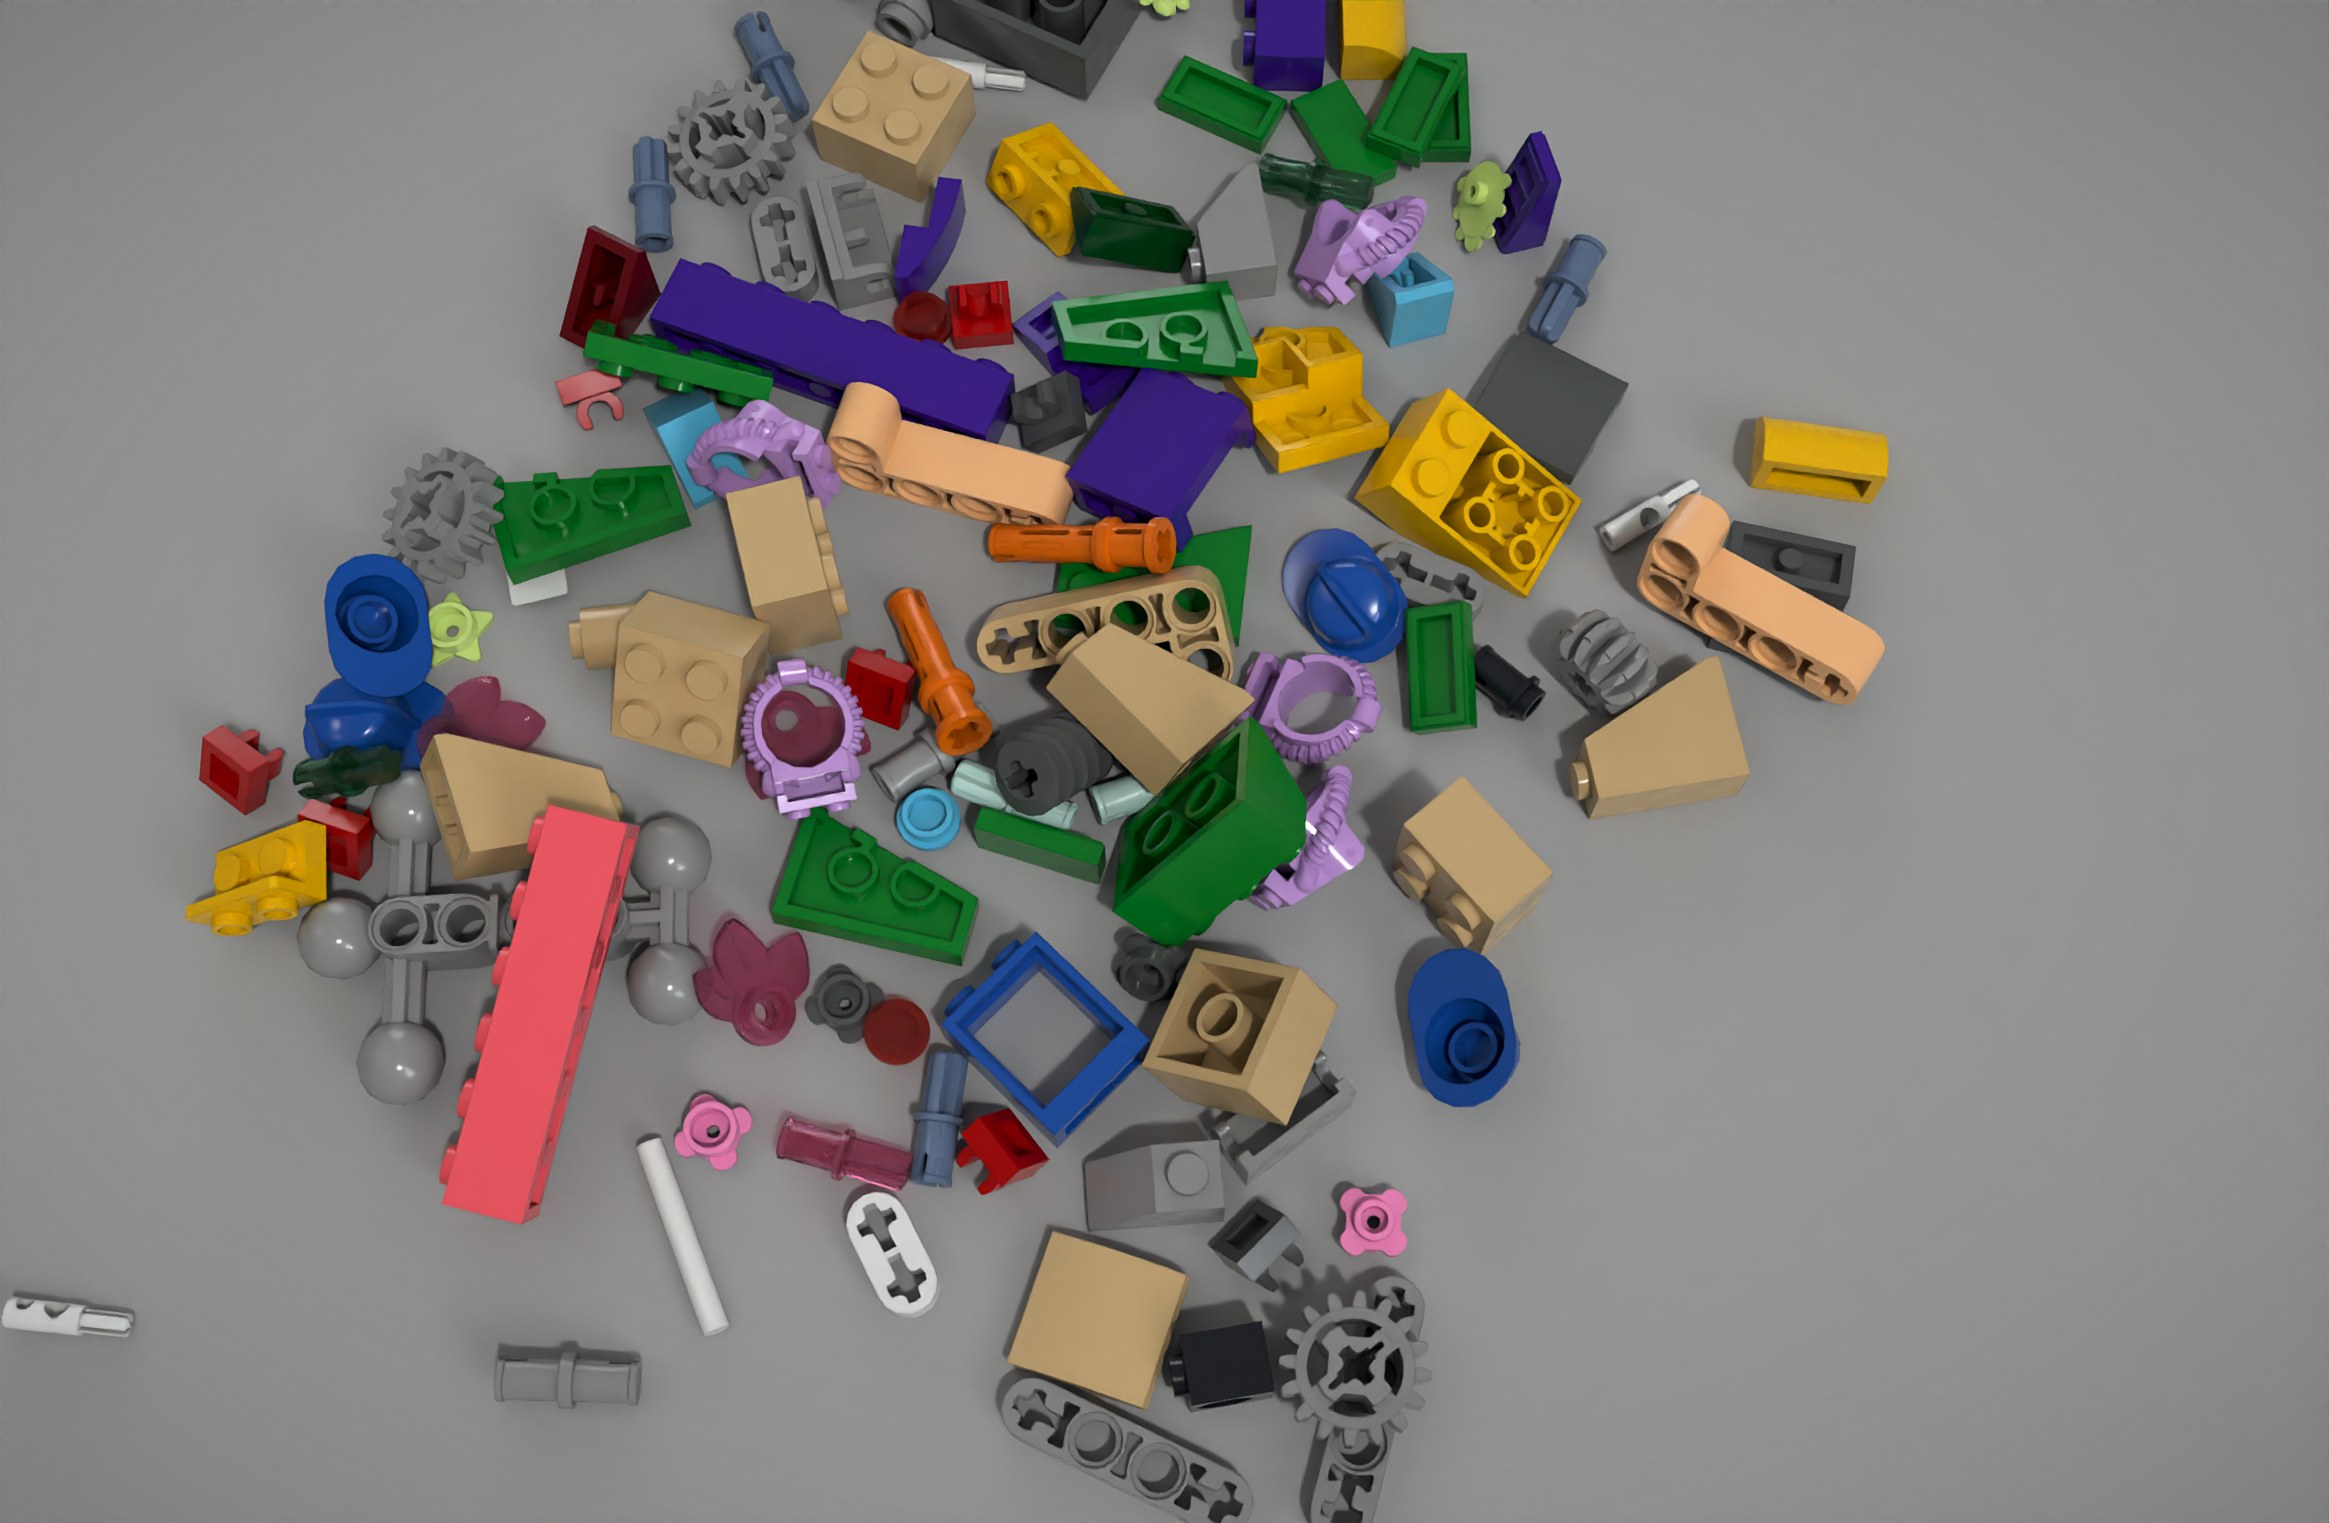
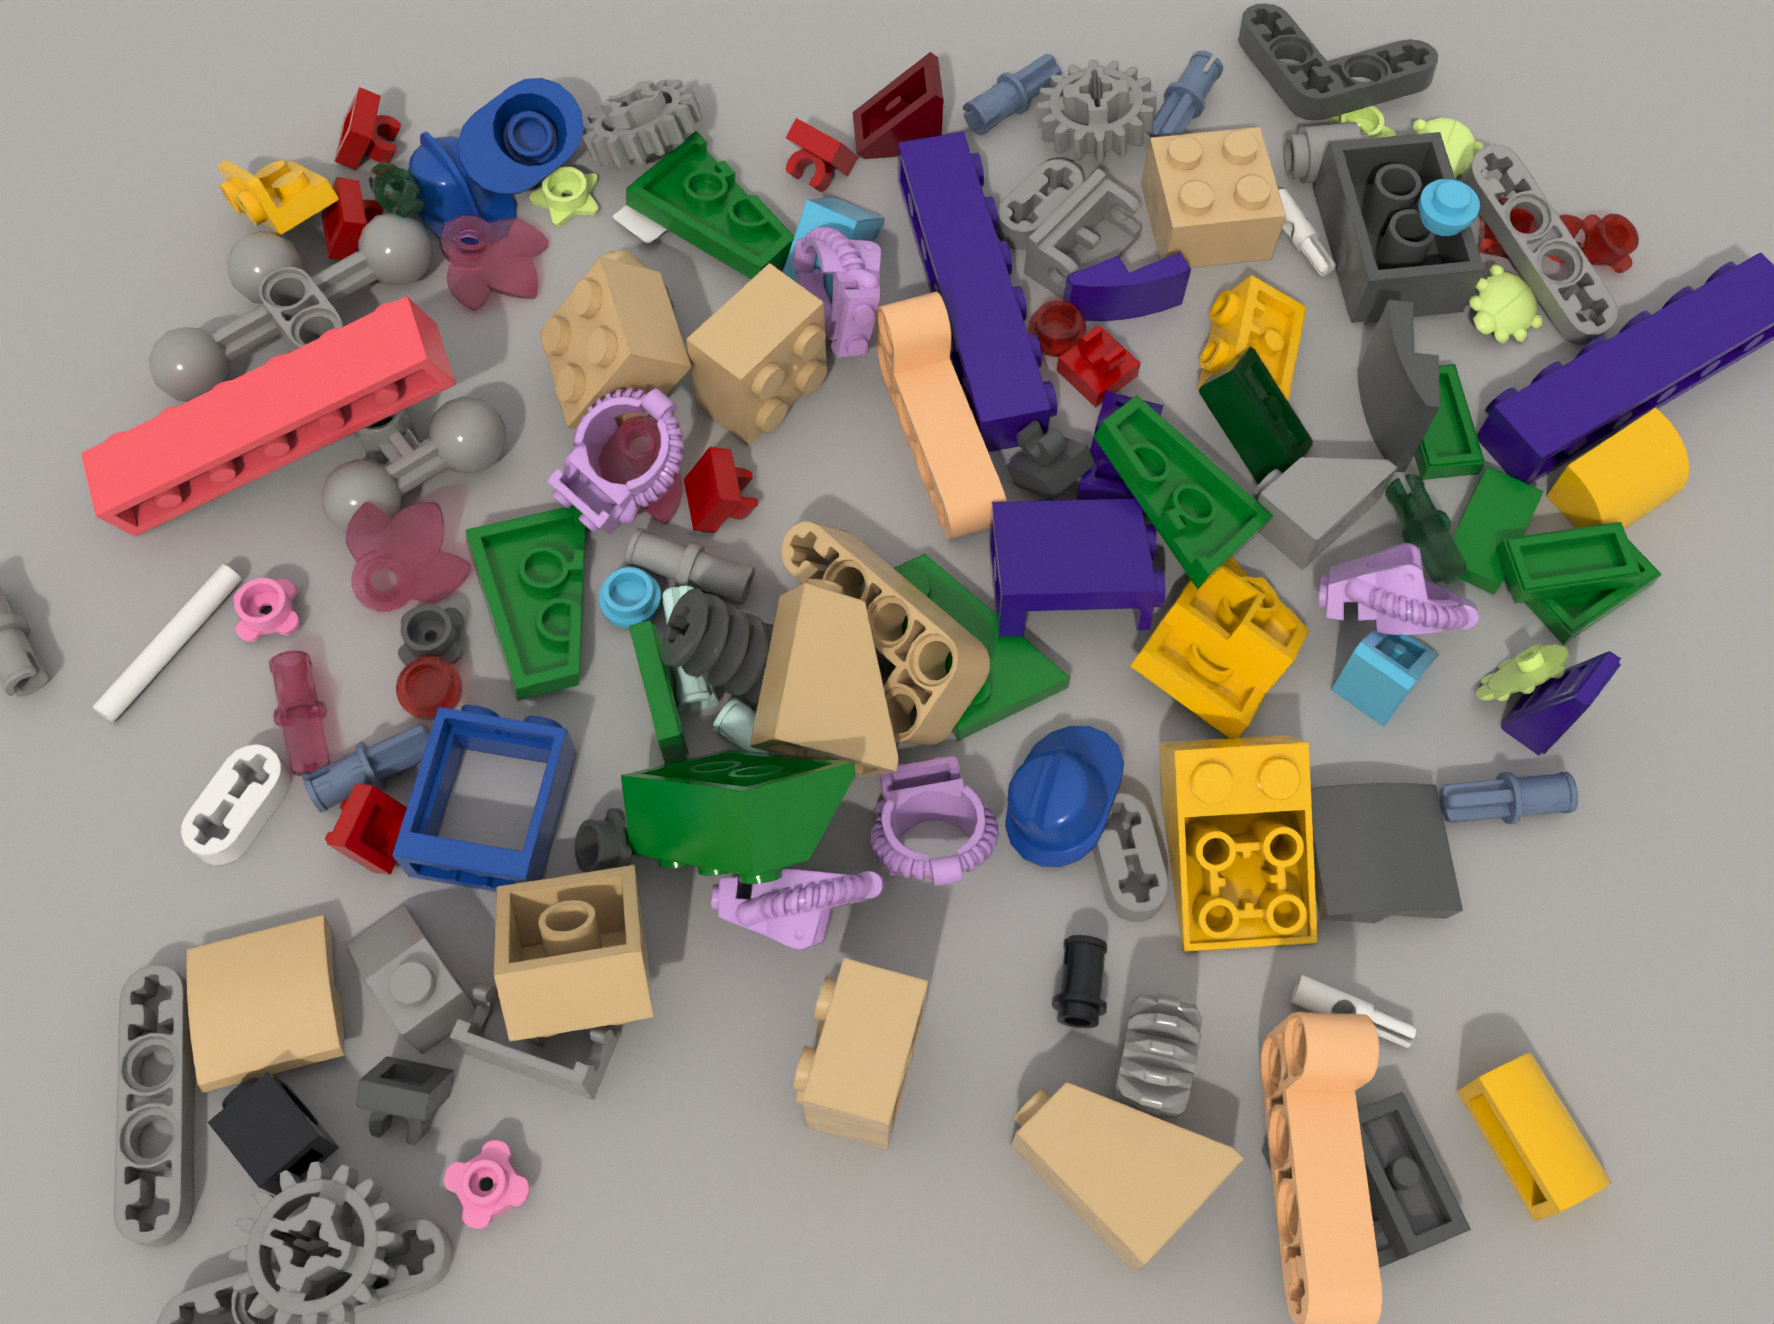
camera: 55 degrees right, 5 degrees down
(493, 793) = (435, 276): tan slope -> none
(734, 379) = (850, 136): green wing -> none
(944, 689) = (737, 531): orange pin -> none
(1107, 544) = (952, 568): orange pin -> none
(1188, 115) = (1398, 386): none -> dark grey slope
(1441, 668) = (1051, 915): green tile -> none
(1462, 1028) = (706, 1153): blue piece -> none

